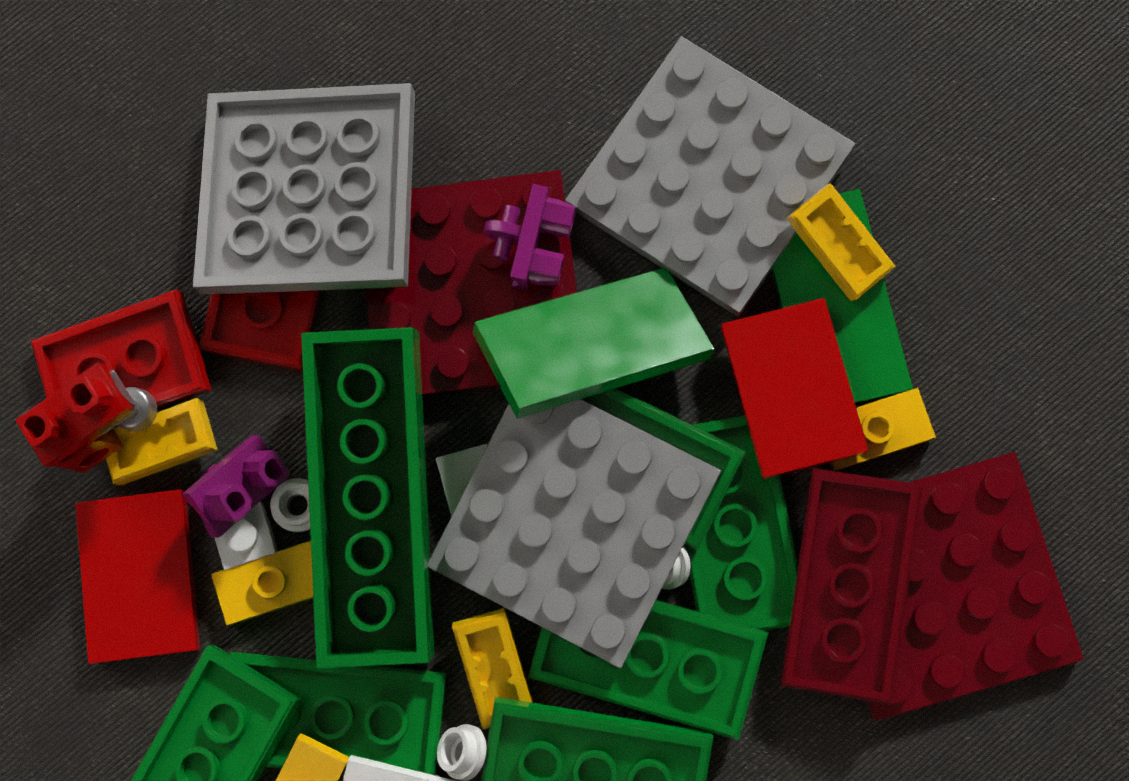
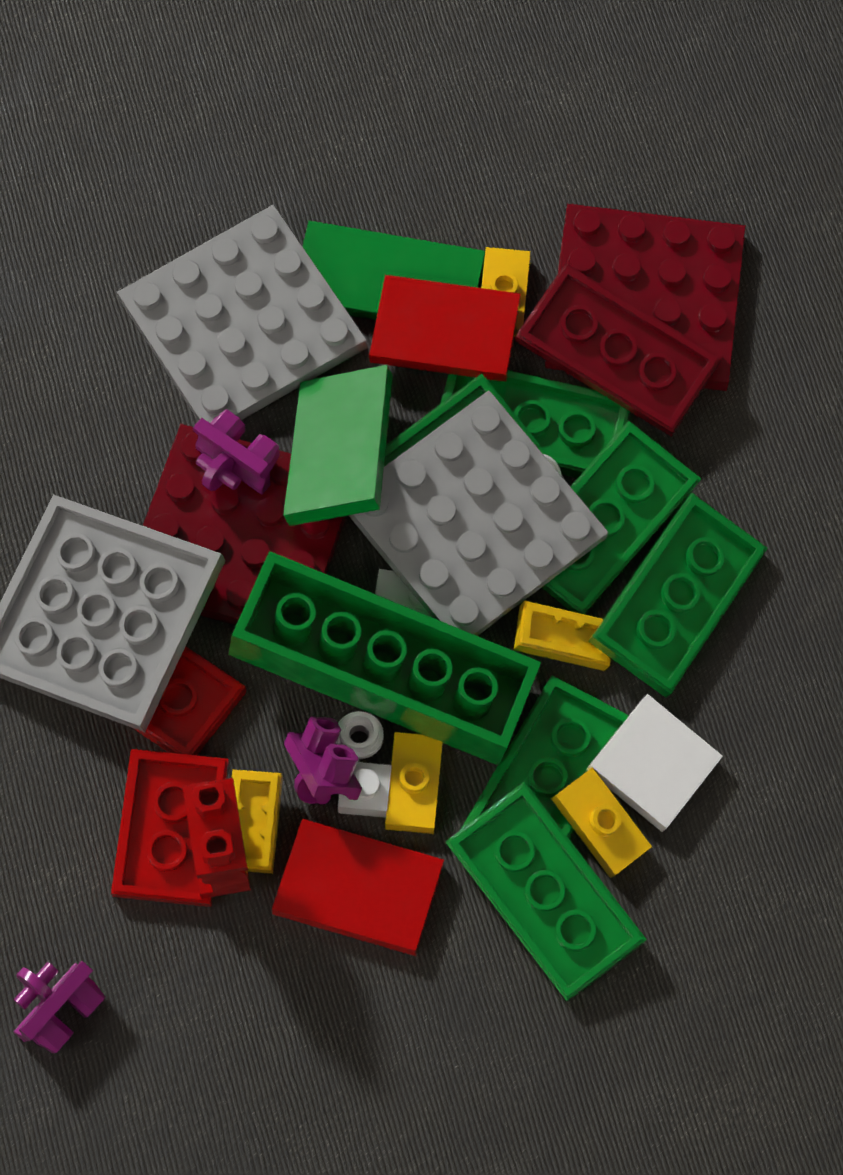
camera: 70 degrees left, 15 degrees down
(462, 751) = (612, 692): white plate -> none
(840, 242) = (347, 245): yellow plate -> none

